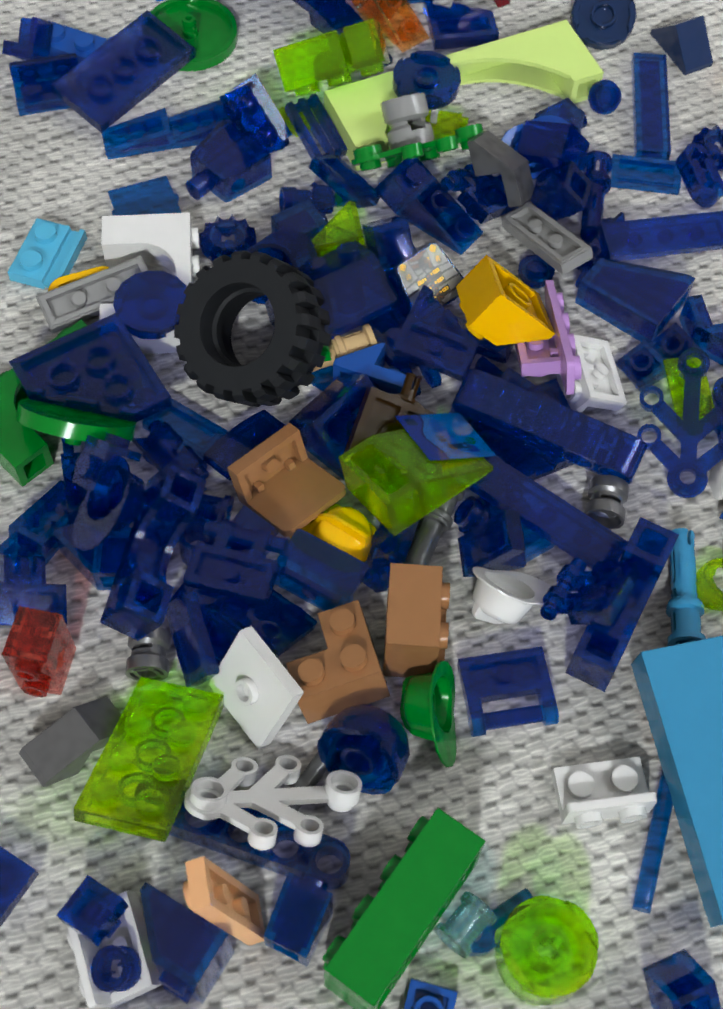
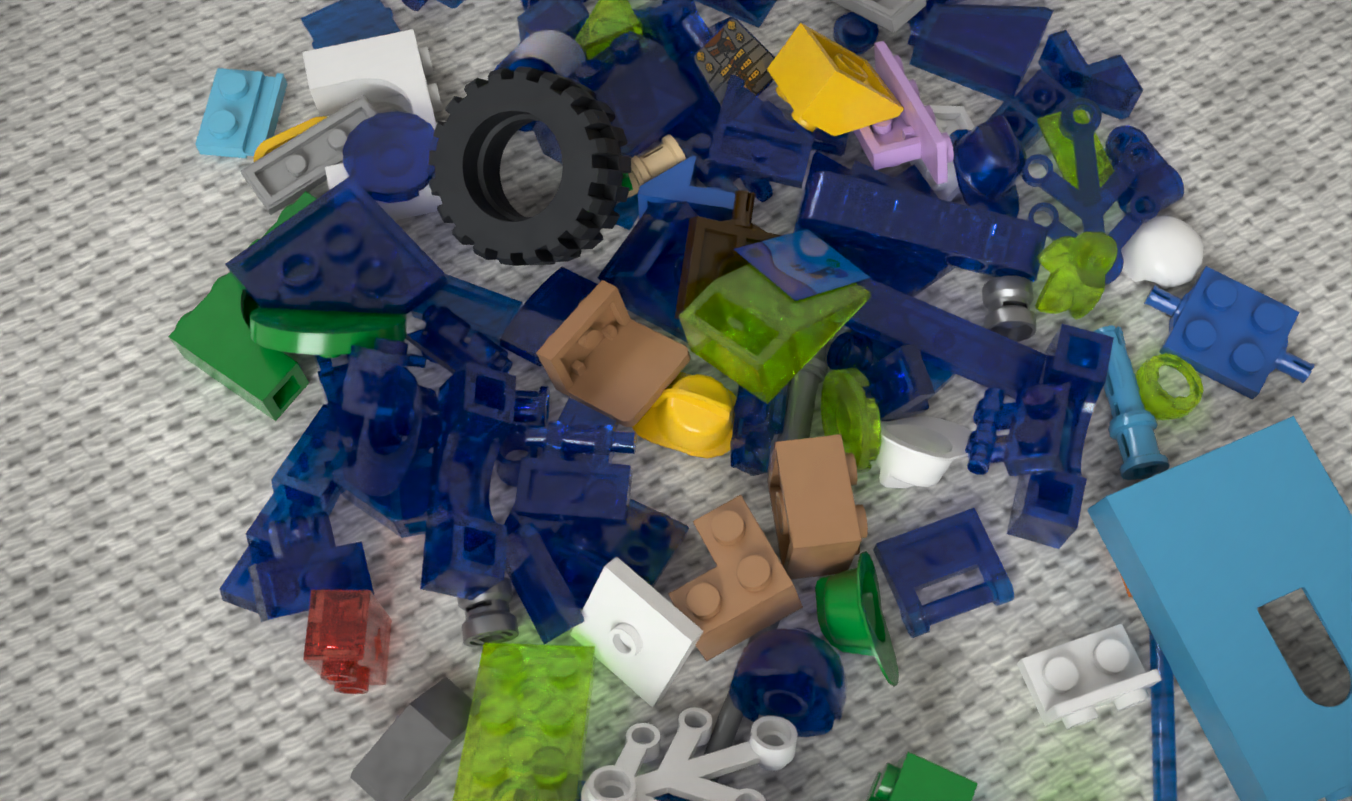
camera: 10 degrees left, 5 degrees up
(211, 241) = (461, 72): clear blue gear -> none
(319, 571) = (682, 465): clear blue panel -> none
(458, 560) = (851, 415): none -> clear neon green tile
(614, 389) = (988, 166): none -> clear blue piece
(660, 486) = (1076, 273): none -> clear neon green plate

